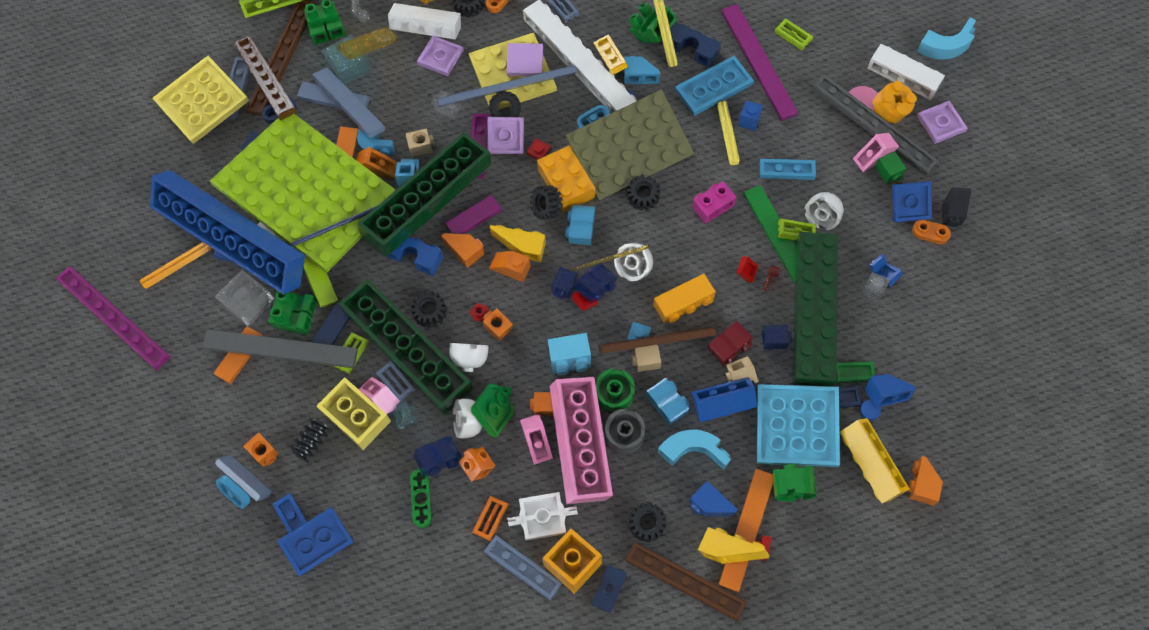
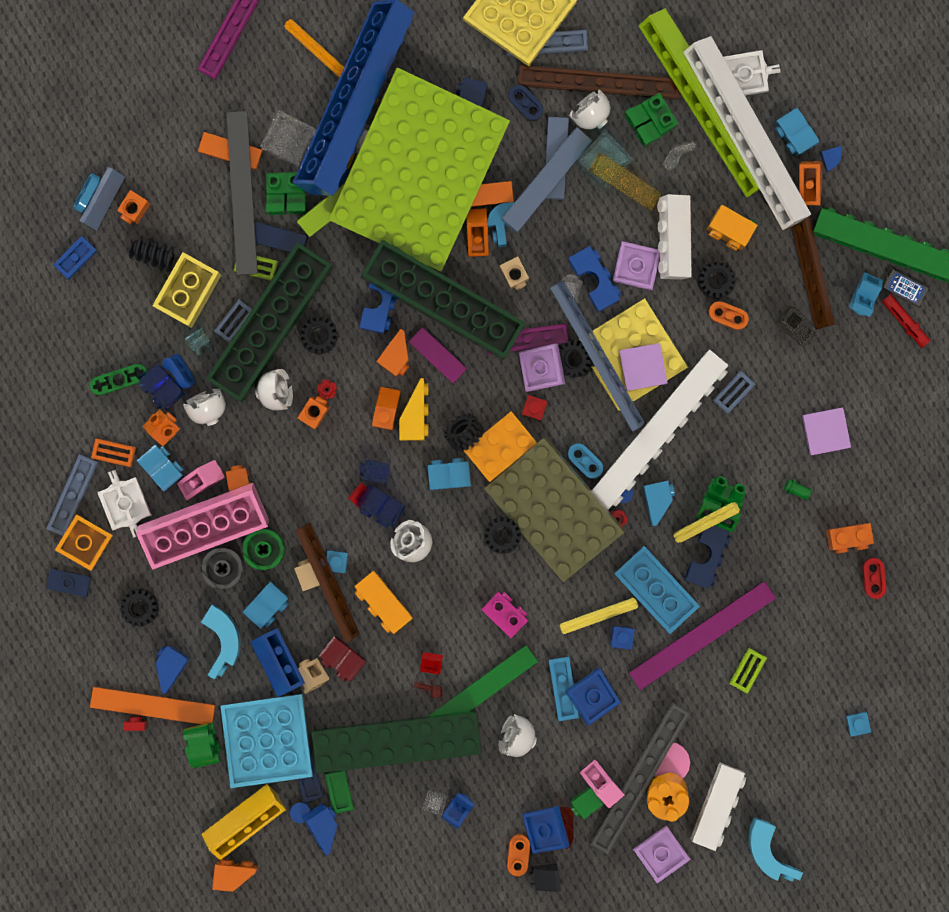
camera: 75 degrees right, 20 degrees up
(265, 78) = (554, 78): tile -> none
(302, 57) = (592, 111): none -> white cylinder
(315, 541) = (54, 289): blue plate -> none
(331, 227) = (382, 219): dark blue axle -> none
(379, 395) = (213, 308): bright pink slope -> none
(406, 169) = (472, 271): dark azure brick -> none
(433, 435) = (180, 370): none -> blue plate
(452, 78) = (588, 263): none -> blue arch
(493, 409) = (219, 431): green tile -> none
(515, 473) = (160, 467): none -> dark azure brick
(569, 354) = (292, 495): medium azure brick -> none
(609, 258) = (407, 512): clear yellow piece -> none
(610, 54) = (670, 463): yellow tile -> none
(686, 581) = (91, 654): reddish brown tile -> none
(728, 549) = (126, 685): yellow slope -> none
(776, 337) = (359, 705): clear blue brick -> none
(791, 233) = (486, 693): lime tile -> none
(798, 147) = (593, 696): none -> blue tile

